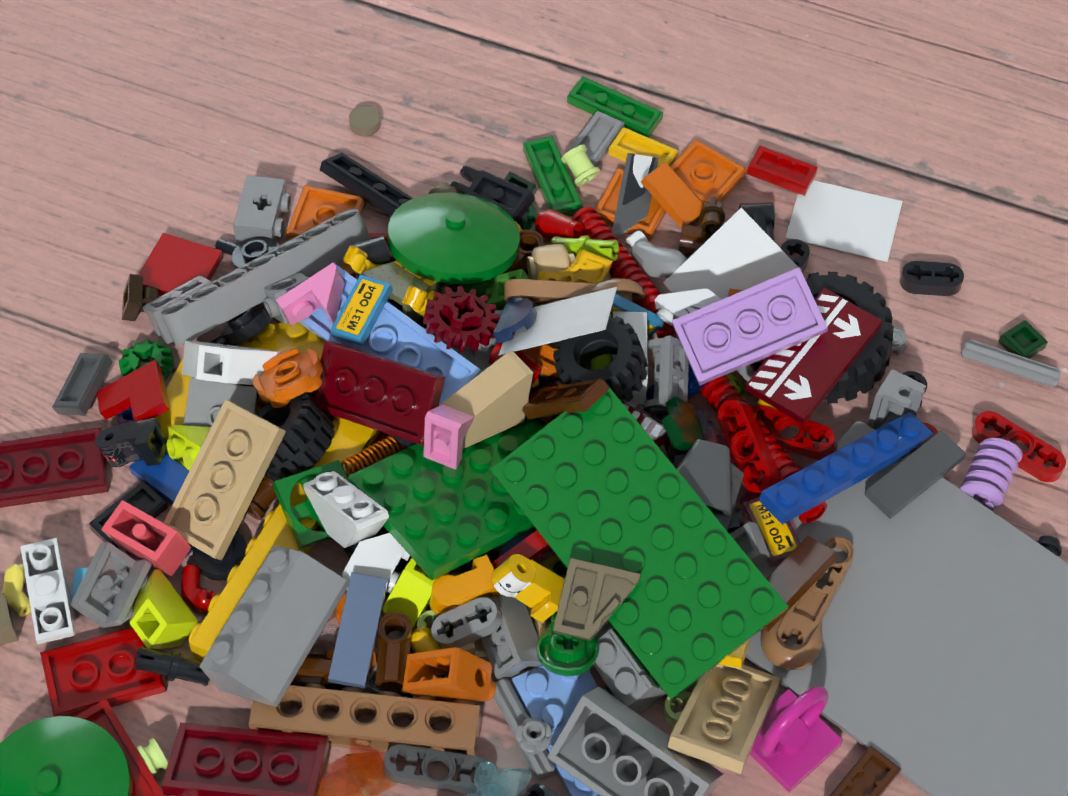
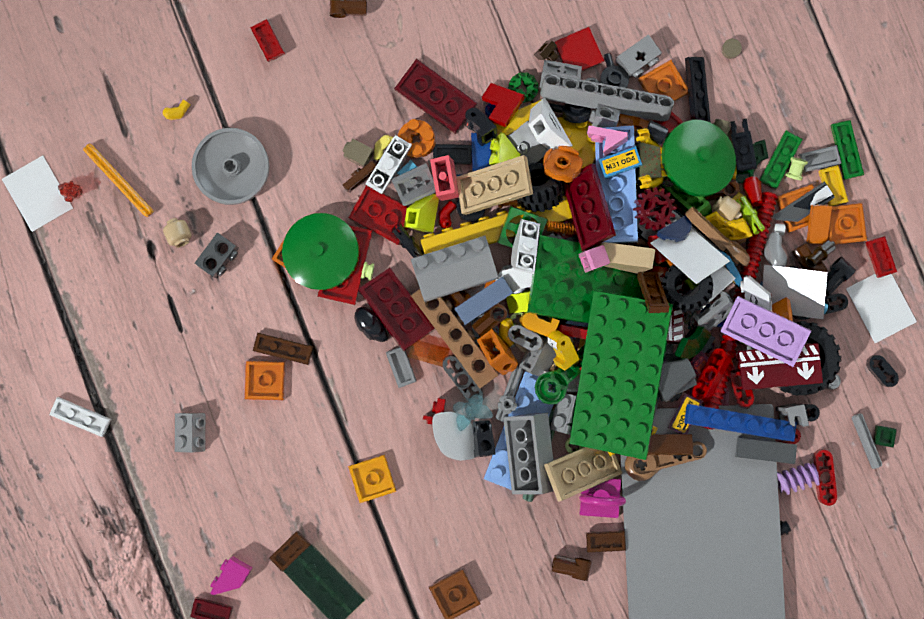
camera: 45 degrees right, 30 degrees up
(19, 650) = (359, 176): none -> reddish brown plate
(62, 517) = (427, 137): none -> orange plate
(82, 384) = (488, 73): dark grey tile -> none
(591, 597) = (576, 381): dark tan wing -> none
(751, 542) = (664, 414): light grey tile -> none

